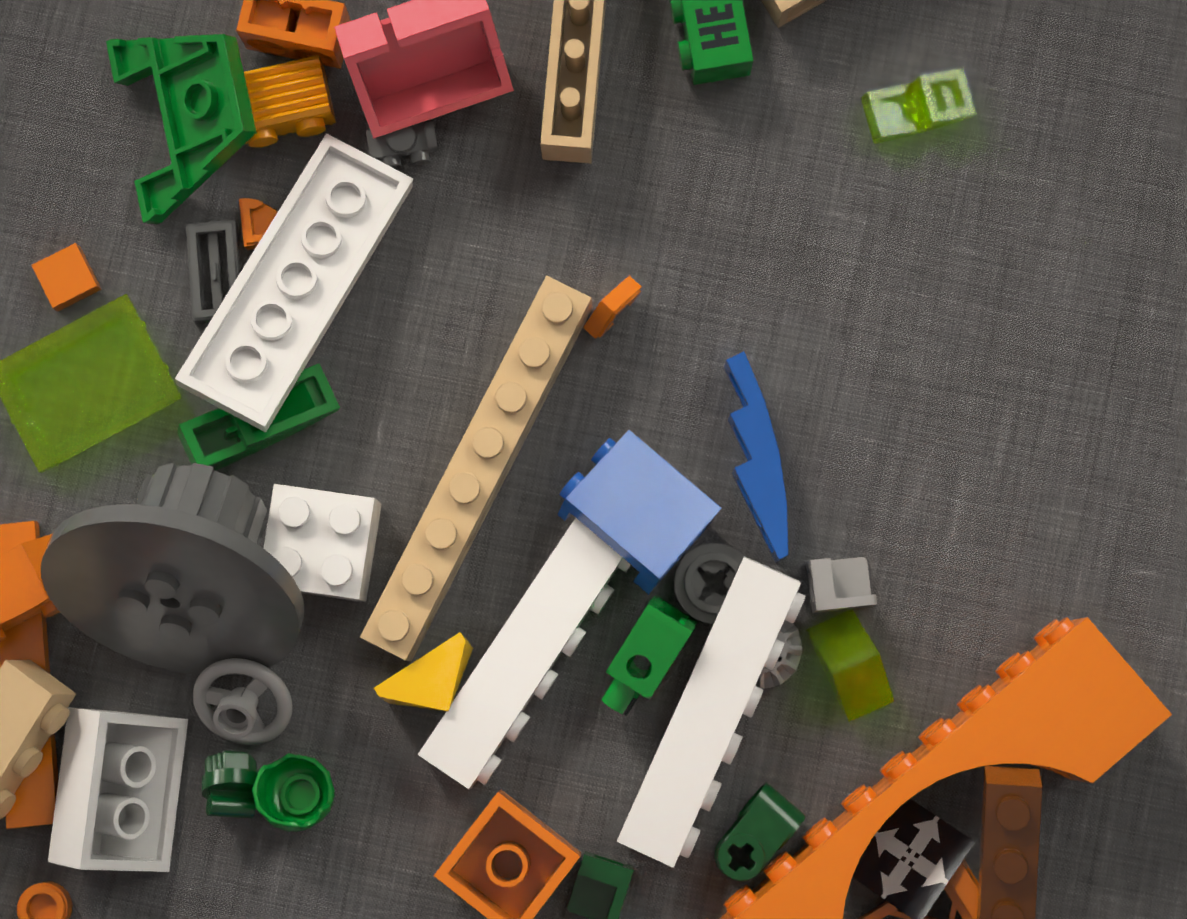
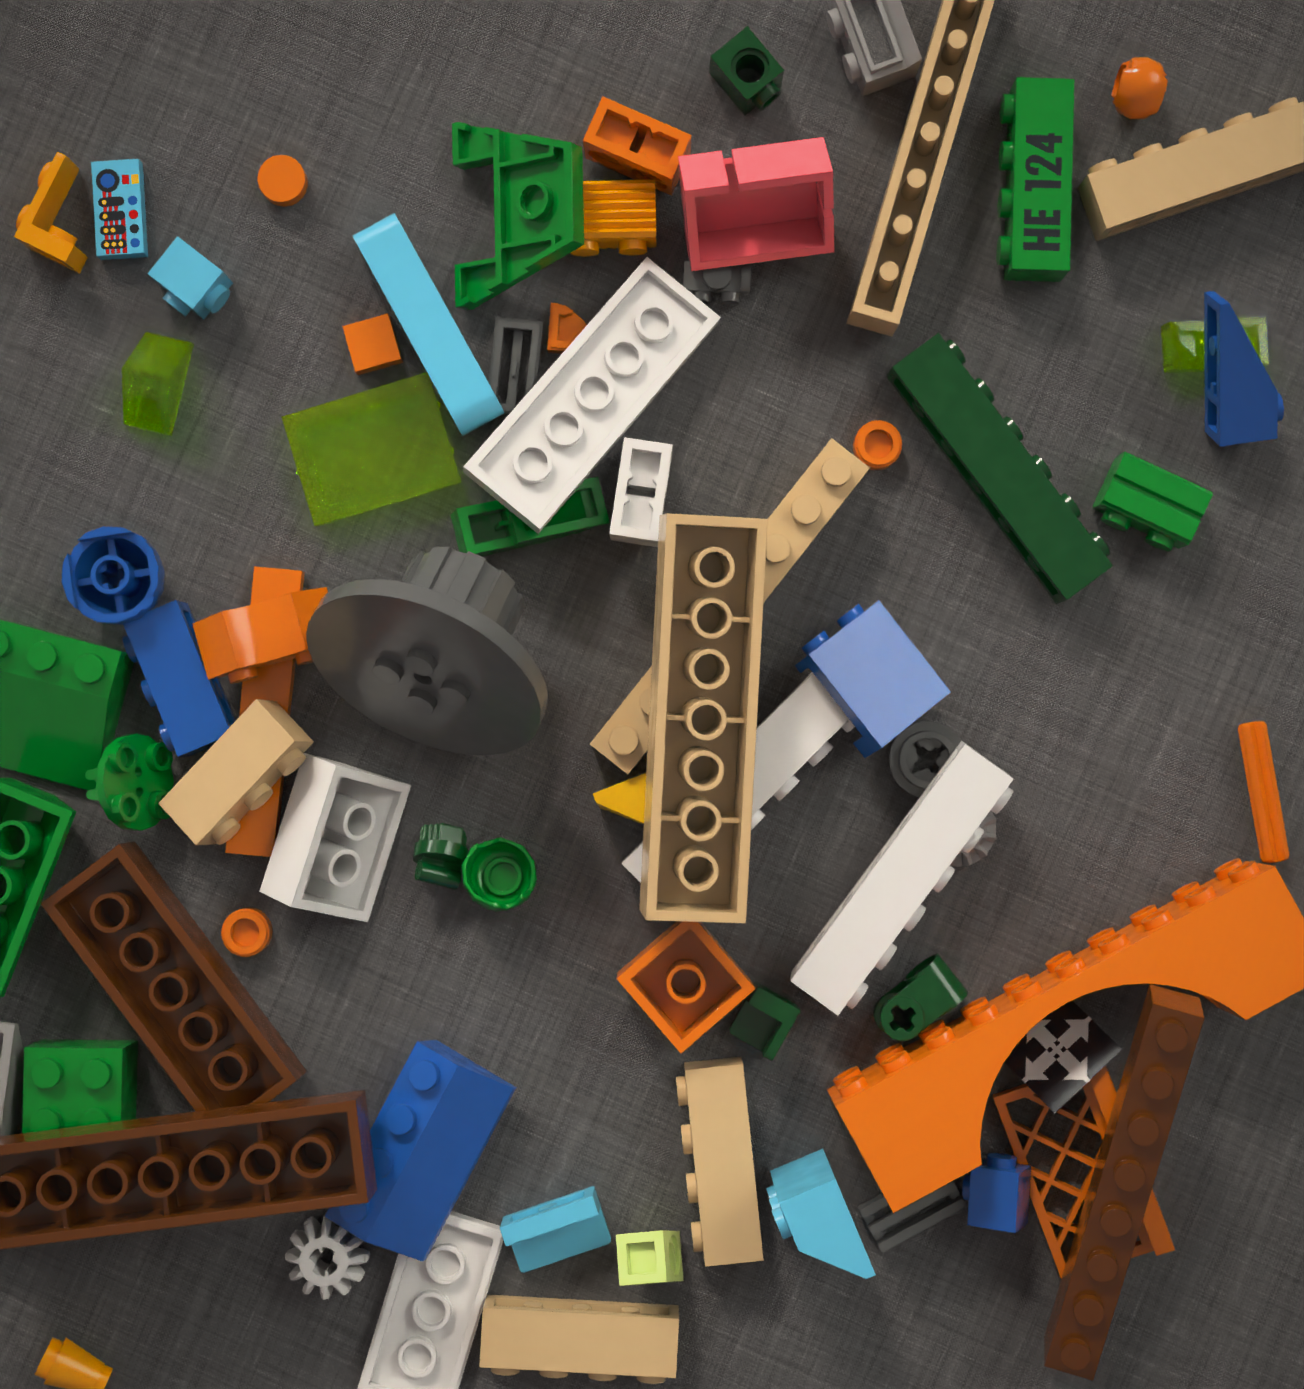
camera: 10 degrees right, 5 degrees up
(117, 246) = (428, 324): none -> medium azure beam
(236, 709) = (460, 790): light grey piece -> none
(324, 539) = (572, 644): white brick -> none
(364, 370) = (640, 491): none -> white brick
(467, 585) = (703, 718): none -> tan brick
(598, 273) = (877, 444): none -> orange tile
(611, 306) = (884, 479): orange tile -> none
(659, 638) = (866, 797): green torso -> none
(725, 272) = (999, 468): none -> dark green brick
(761, 476) = (993, 670): blue slope -> none
(839, 584) = (1043, 784): light grey panel -> none
(851, 664) = (1039, 860): clear neon green slope -> none
(887, 275) = (1151, 502): none -> green brick
(950, 147) = (1238, 390): none -> blue slope
(1067, 546) = (1263, 792): none -> orange axle

